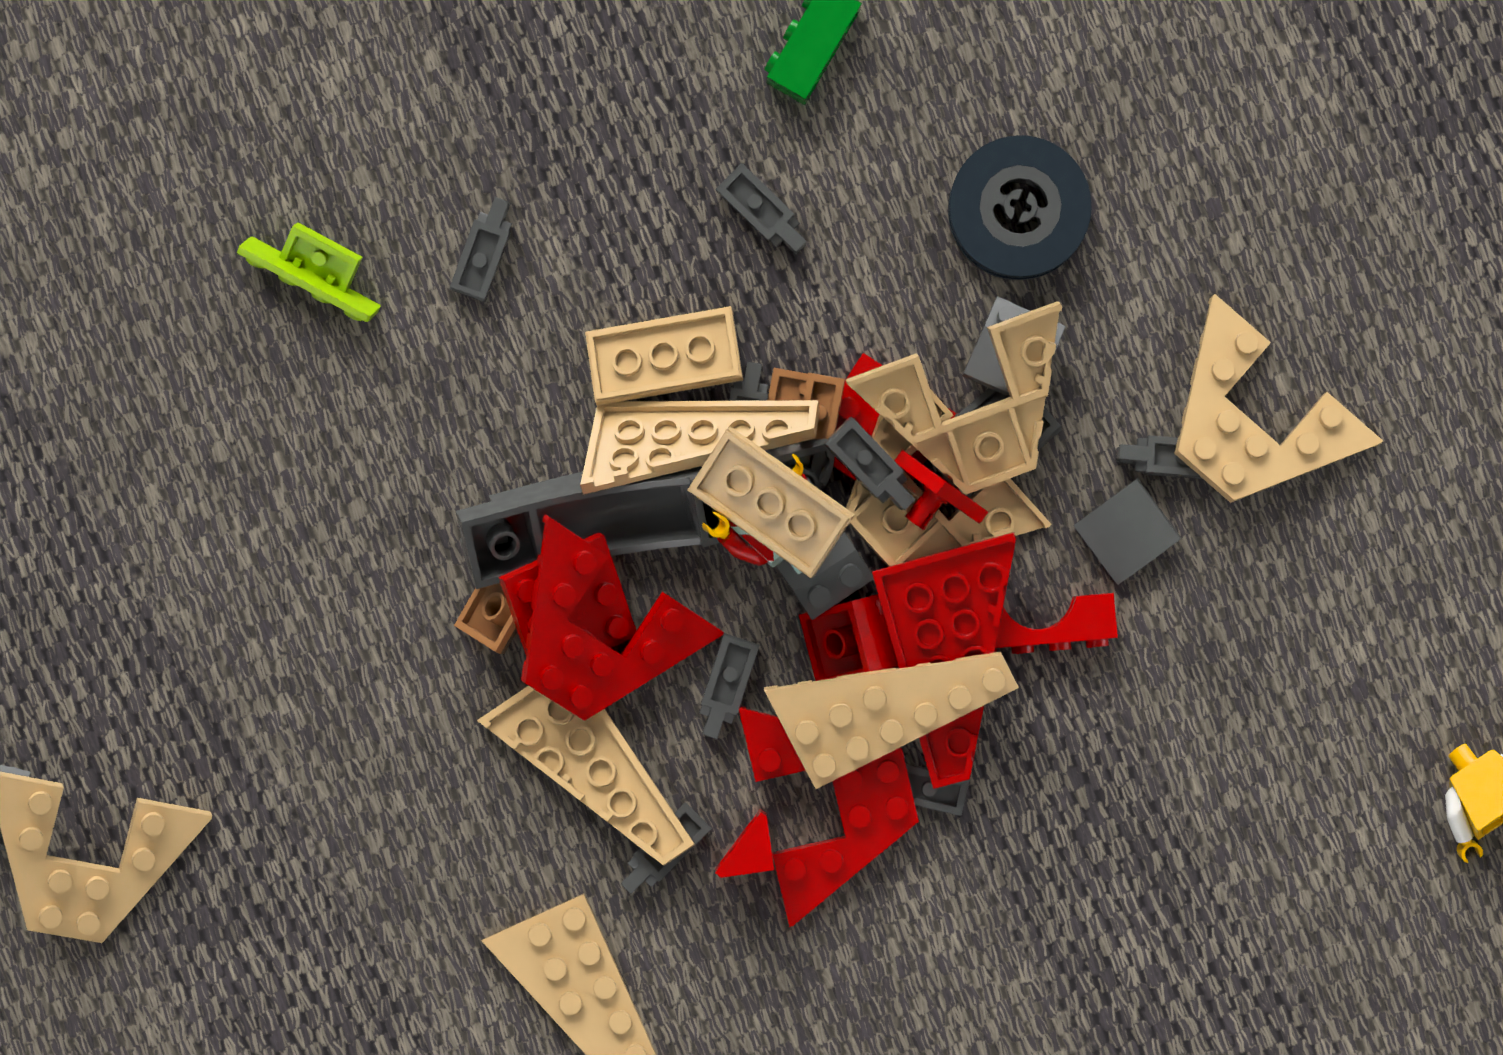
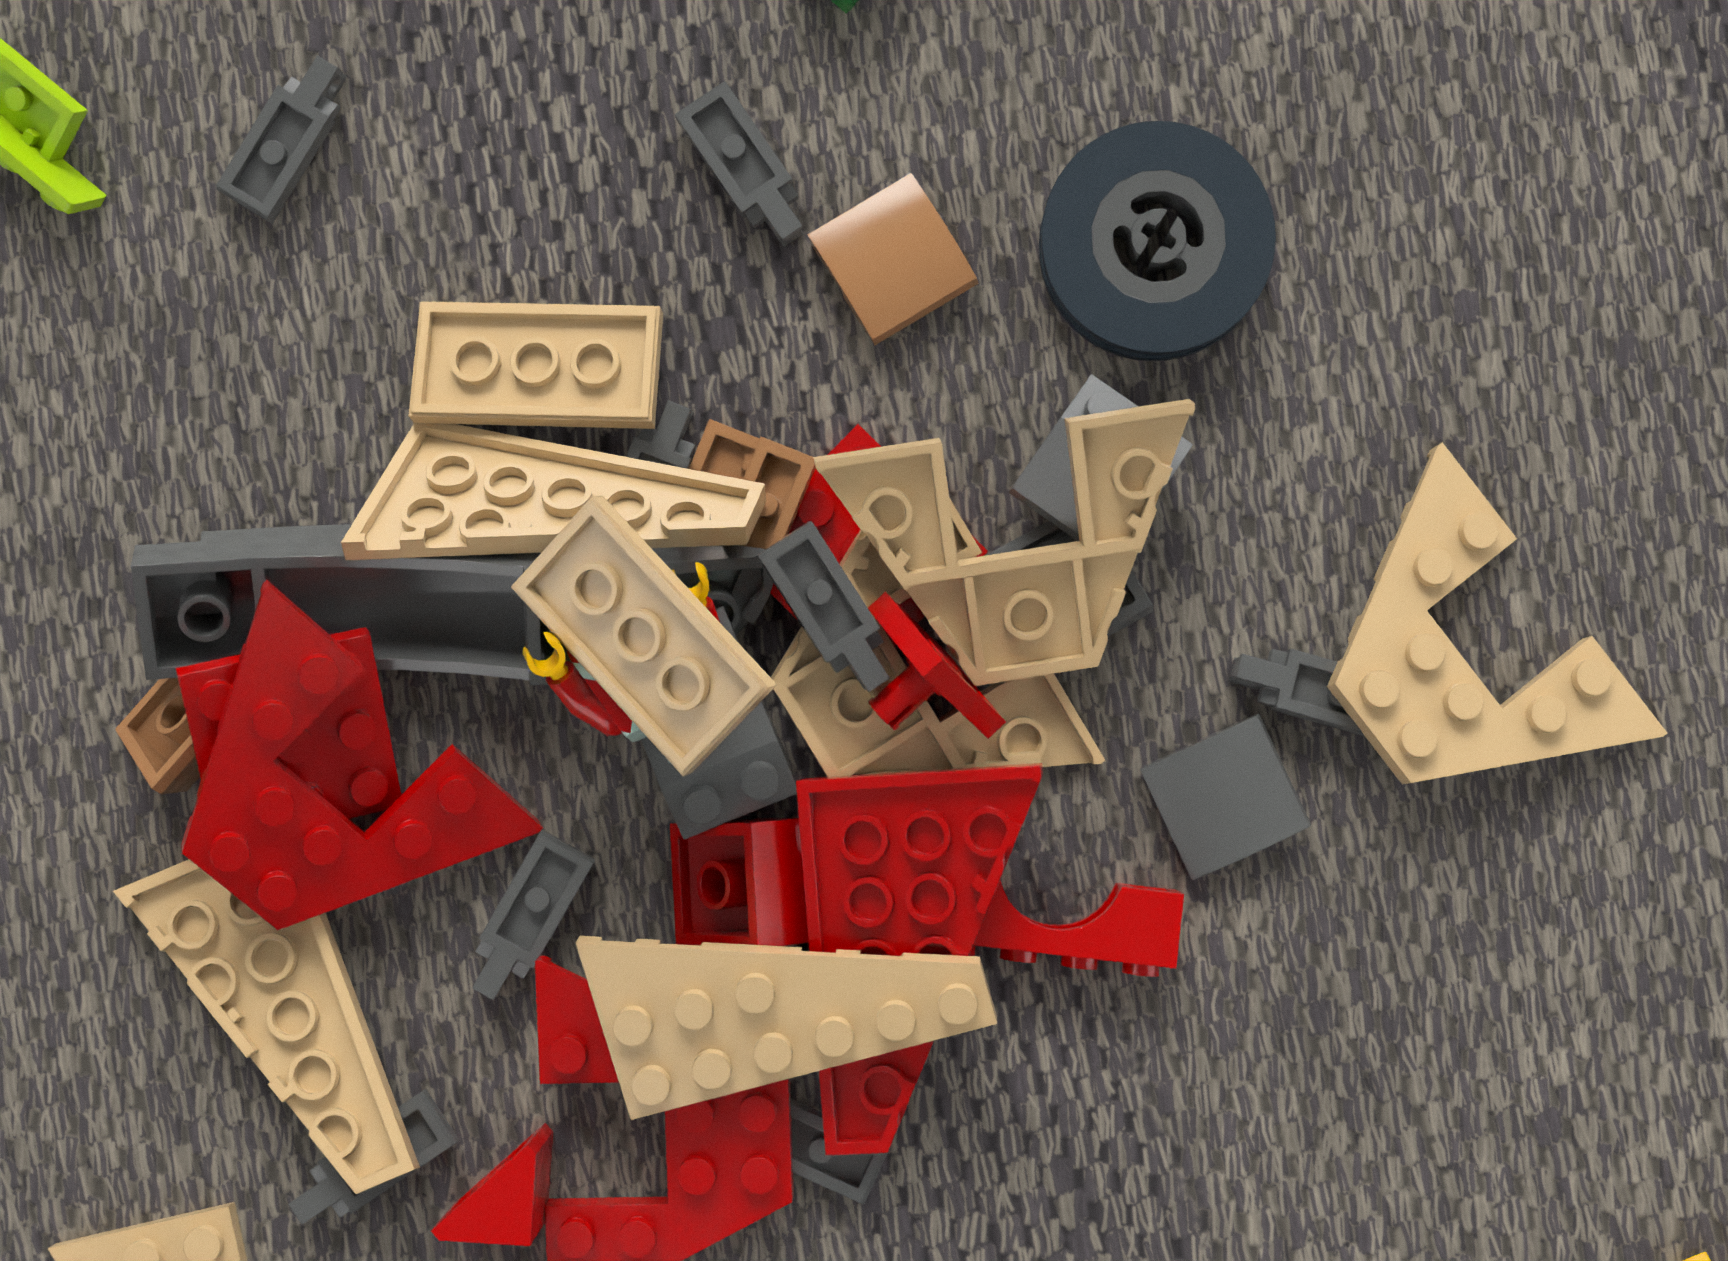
camera: 15 degrees right, 0 degrees up
(864, 249) = (893, 259): none -> medium nougat slope

